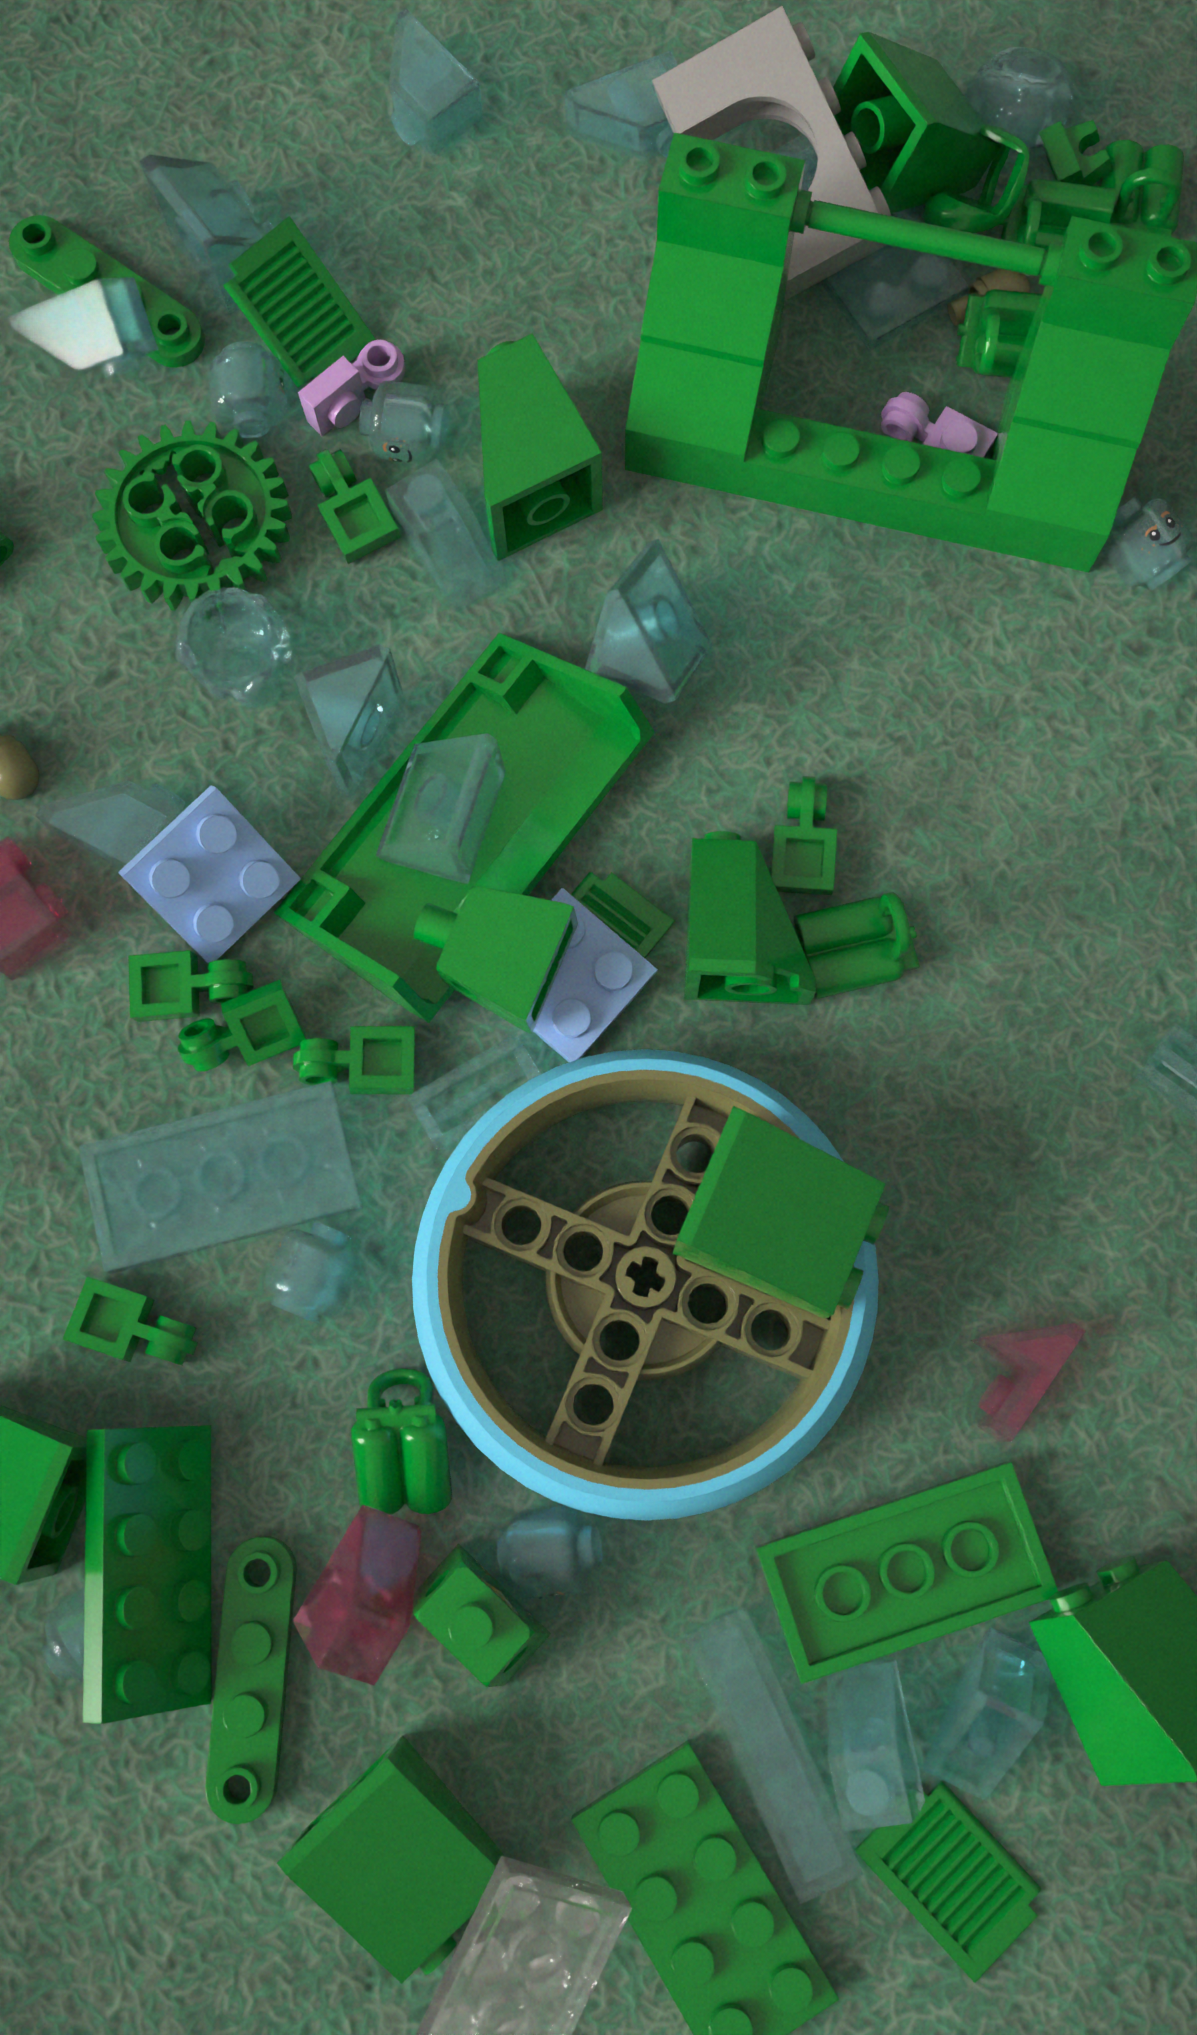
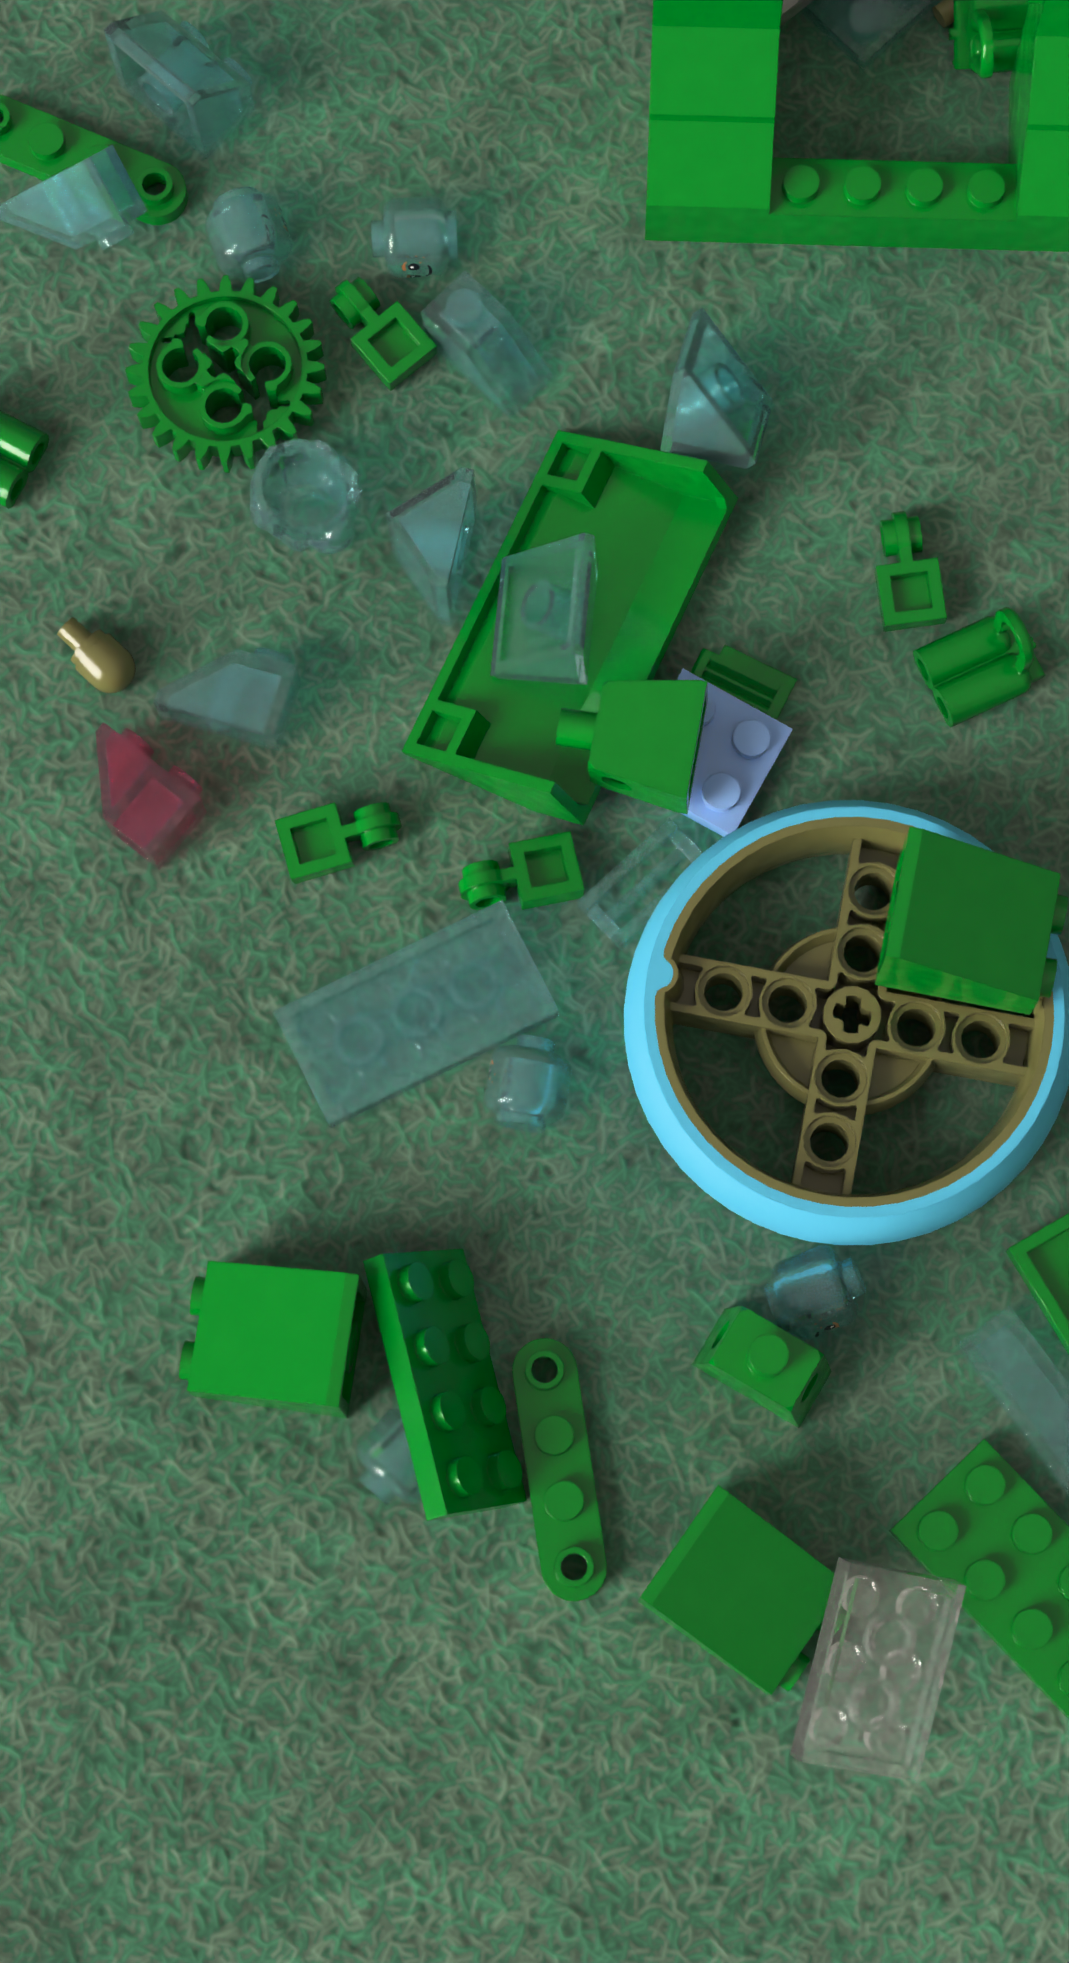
camera: 10 degrees left, 0 degrees up
(115, 1319) = (346, 1168): green plate -> none
(210, 874) = (337, 725): light blue plate -> none
(257, 1023) = (418, 861): green plate -> none
(296, 304) = (282, 140): green window -> none
(338, 392) = (343, 220): lavender plate -> none
(363, 1597) = (652, 1364): clear pink slope -> none
(401, 1448) = (654, 1228): green piece -> none
(535, 449) = (557, 239): green slope -> none
(739, 929) = (863, 673): green slope -> none
(907, 418) = (964, 142): lavender plate -> none

